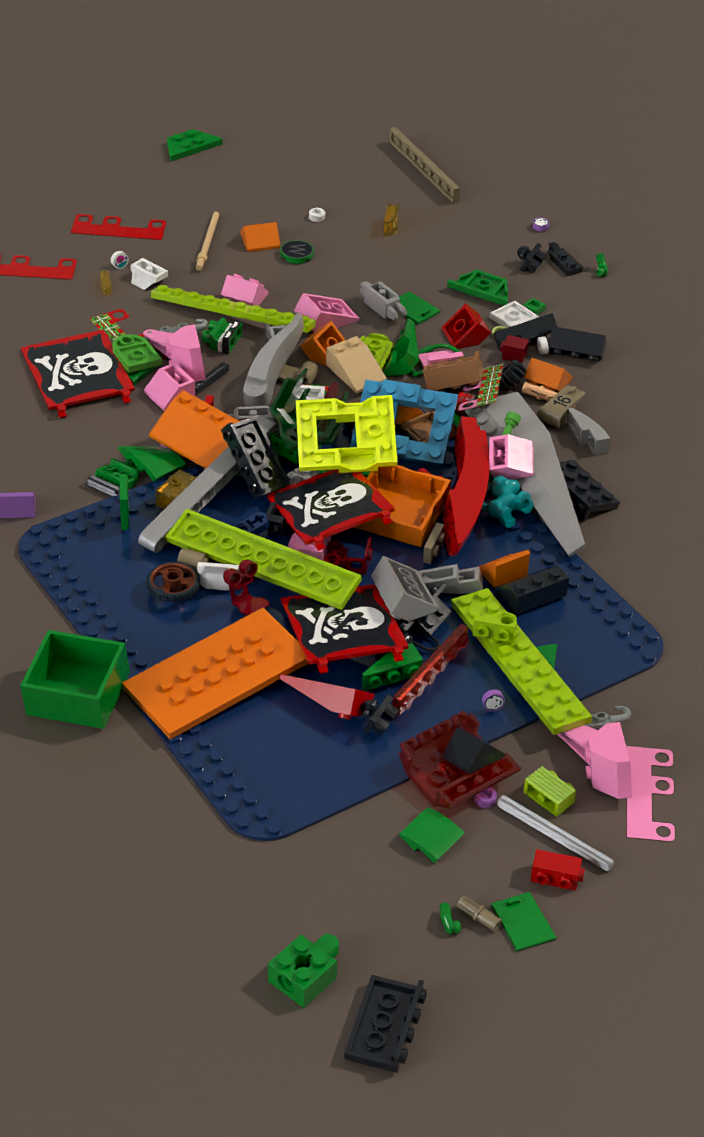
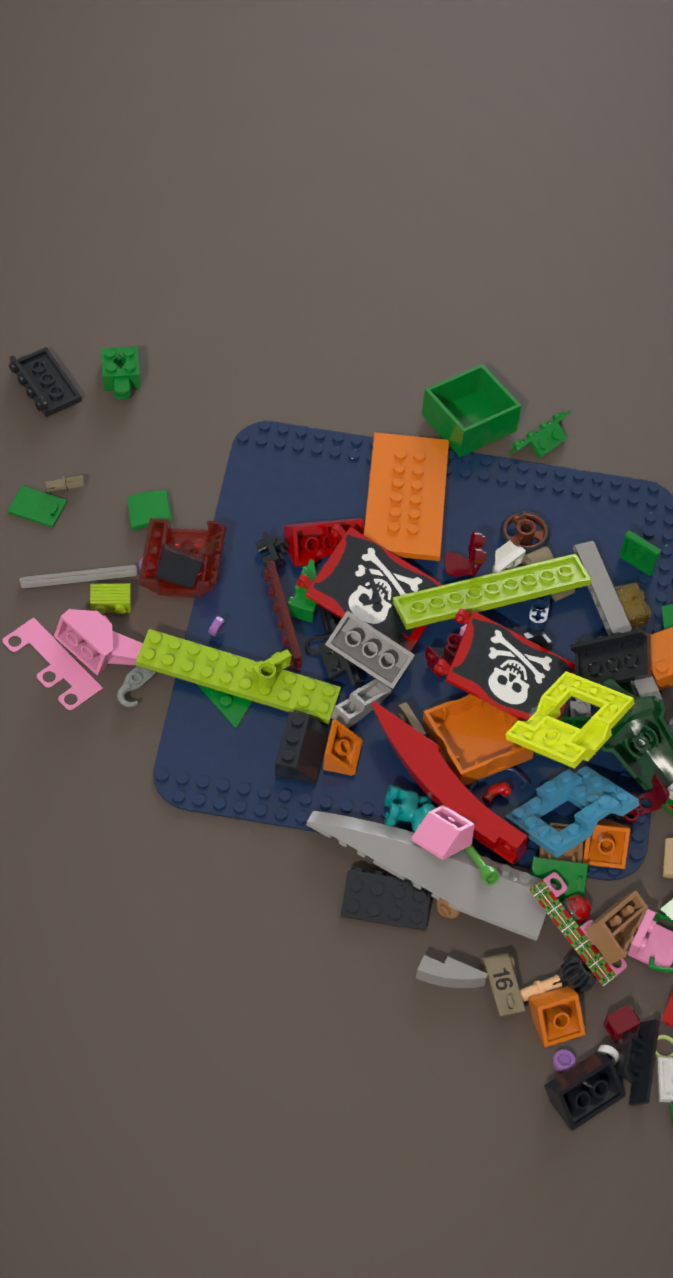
camera: 130 degrees right, 15 degrees up
(30, 635) = (545, 438): none -> green bracket
(446, 918) = (78, 464): green arm -> none
(557, 870) = (48, 546): red brick -> none
(570, 364) = (563, 1060): none -> medium lavender tile

